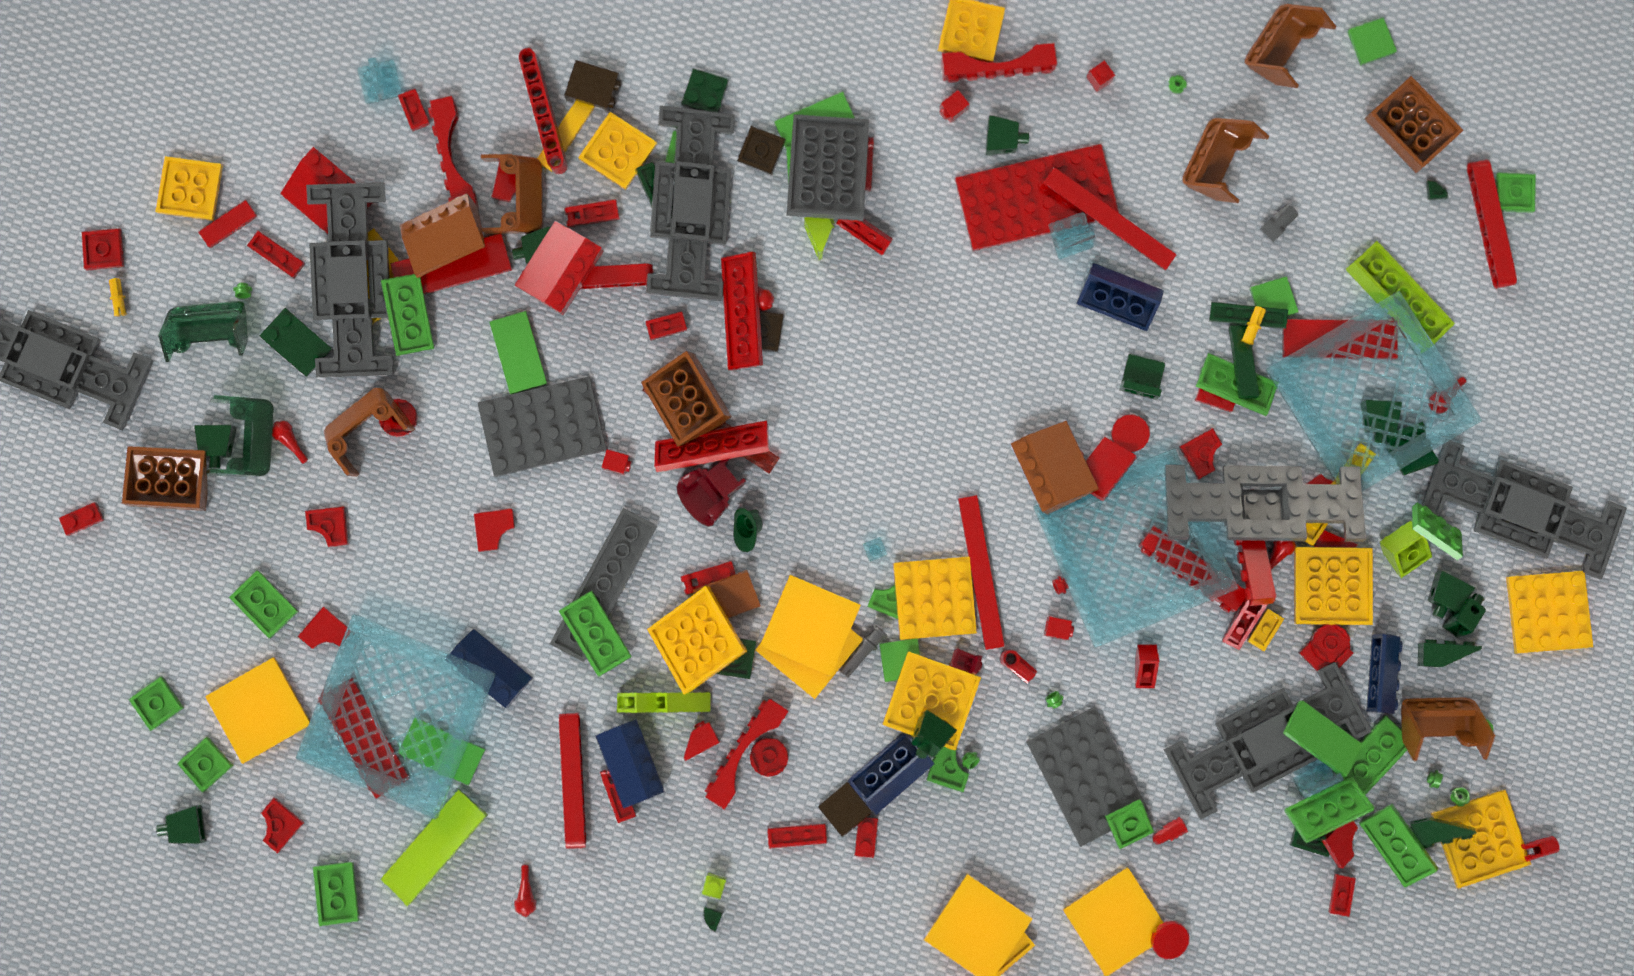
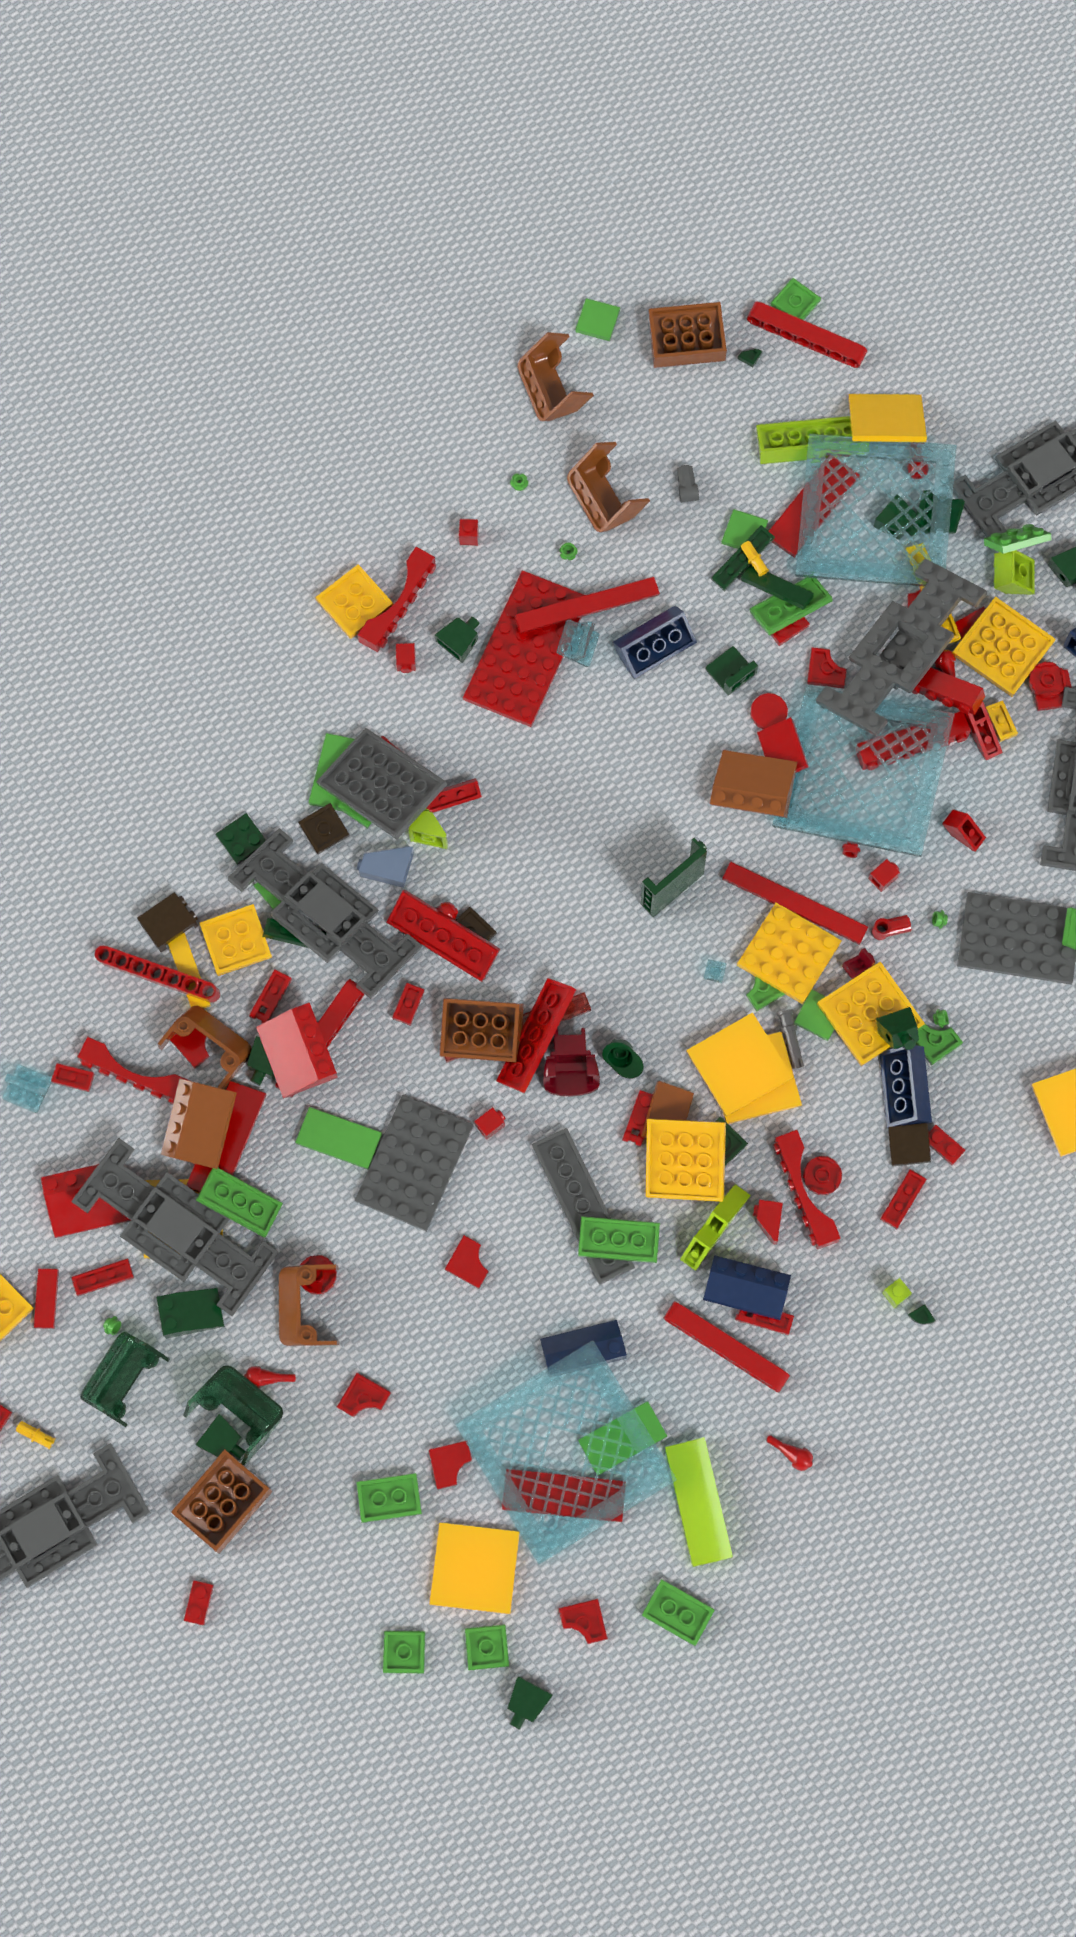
camera: 45 degrees left, 10 degrees down
(767, 223) = (387, 865): none -> sand blue slope
(921, 465) = (658, 896): none -> dark green panel
(1146, 164) = (568, 547): none -> bright green plate
(1465, 345) = (887, 417): none -> yellow tile

